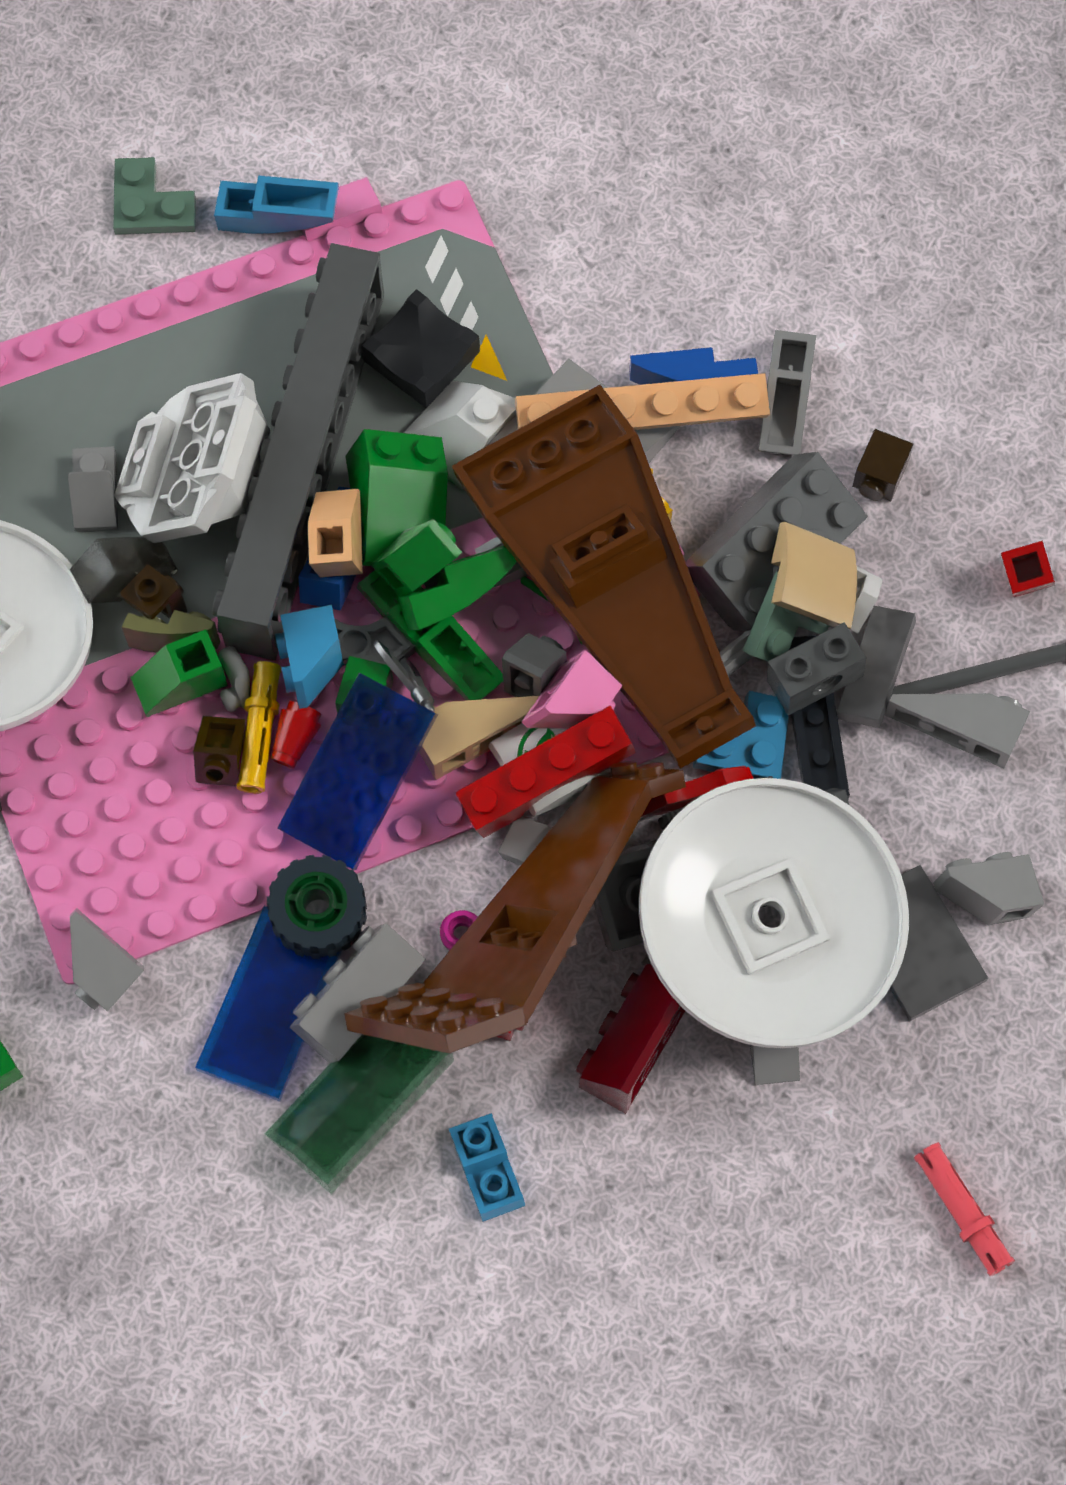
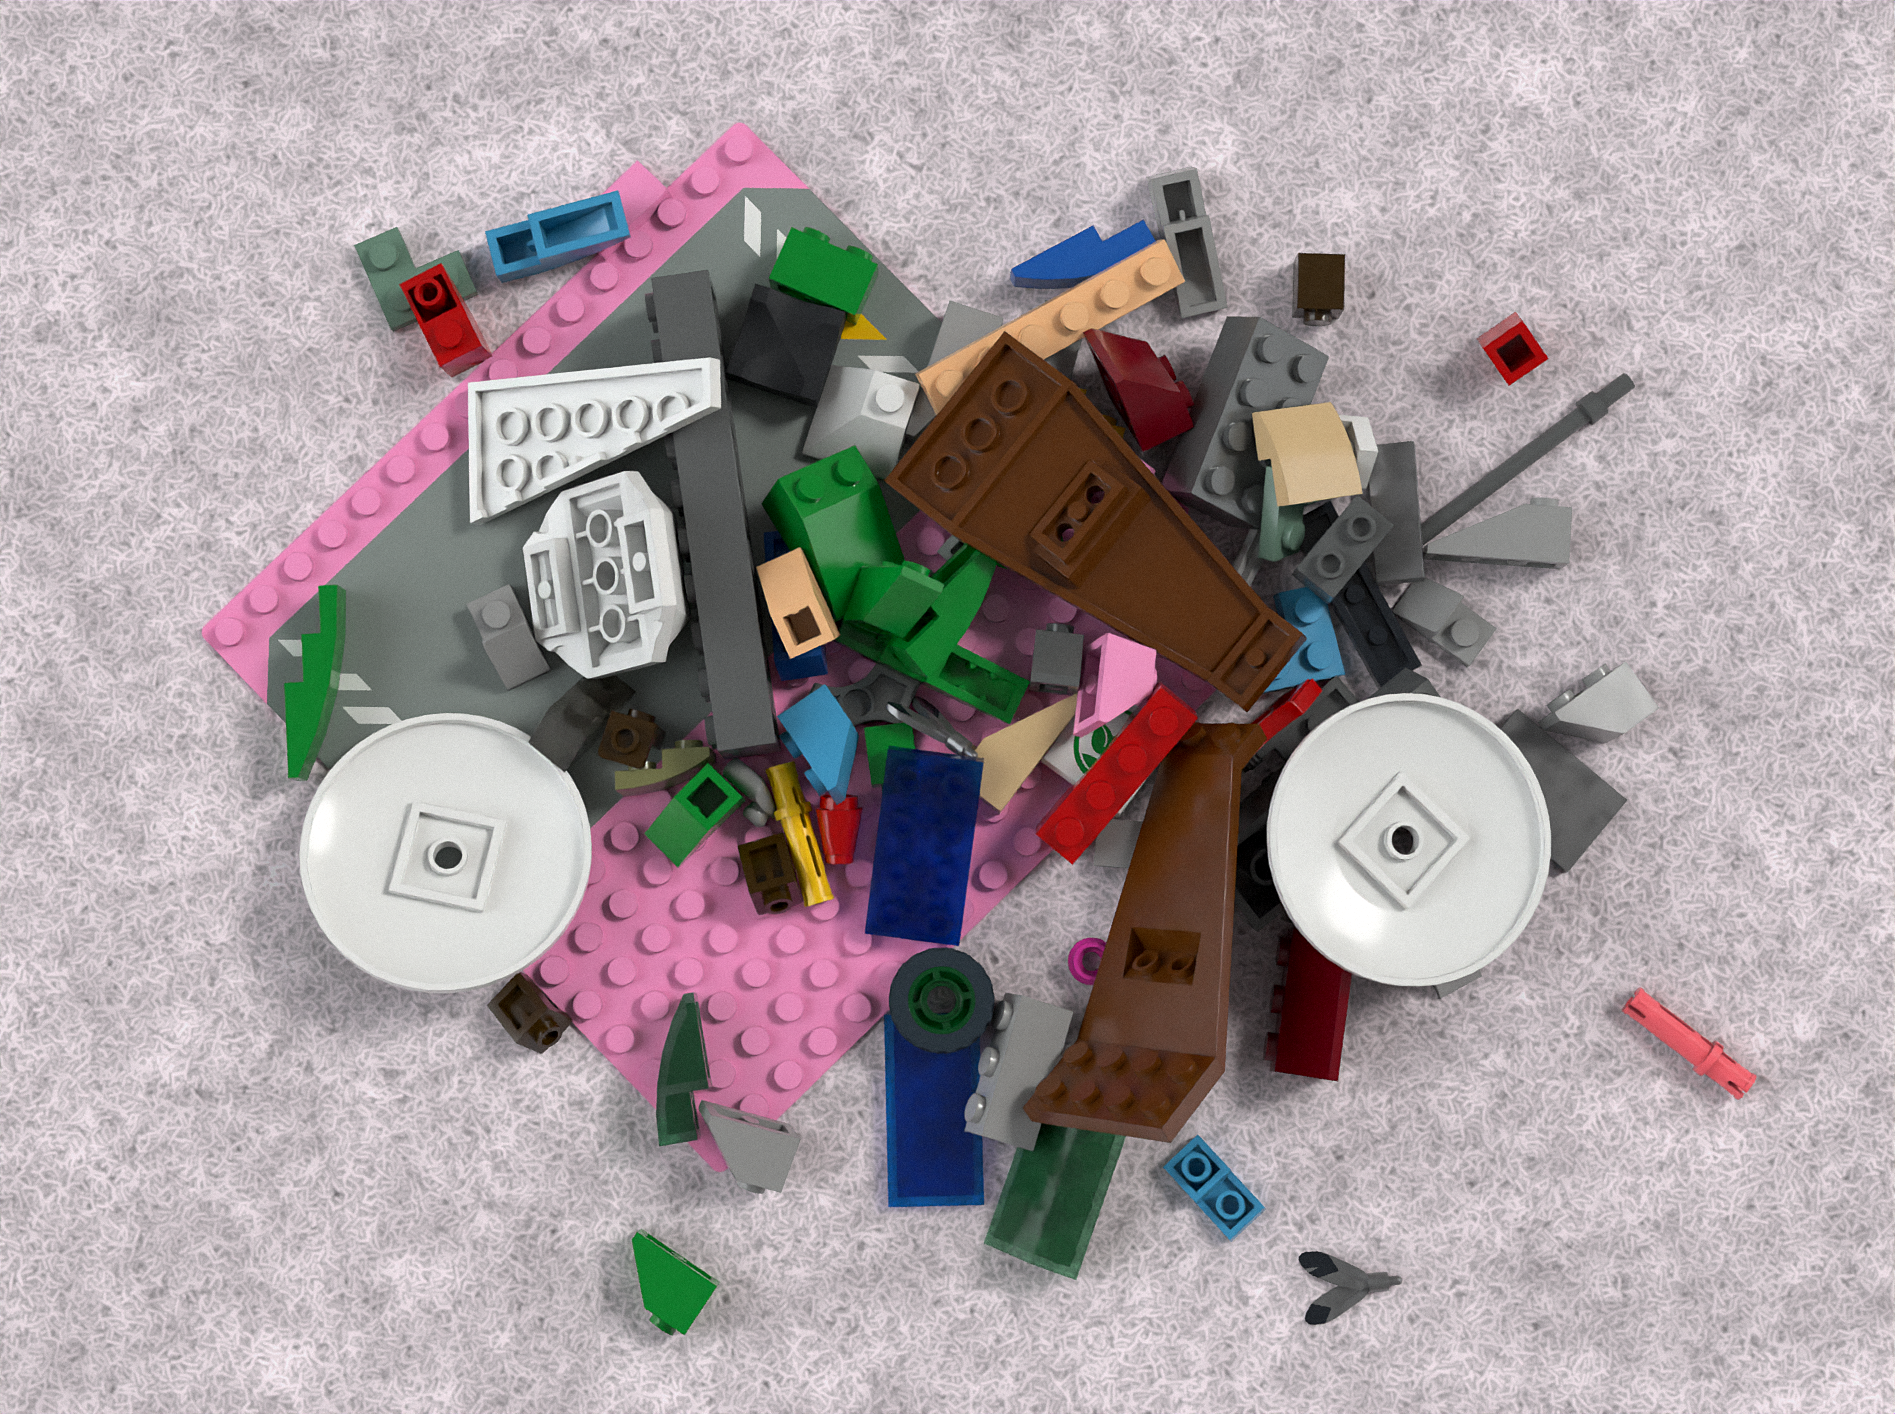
camera: 25 degrees left, 15 degrees up
(70, 880) = (681, 1072): none -> clear green slope
(158, 235) = (445, 321): none -> red slope
(214, 332) = (560, 426): none -> white wing
(475, 302) = (824, 273): none -> green brick
(574, 1300) = (1351, 1288): none -> flat silver piece
(699, 481) = (1141, 387): none -> dark red slope
(882, 766) = (1444, 620): none -> light grey slope

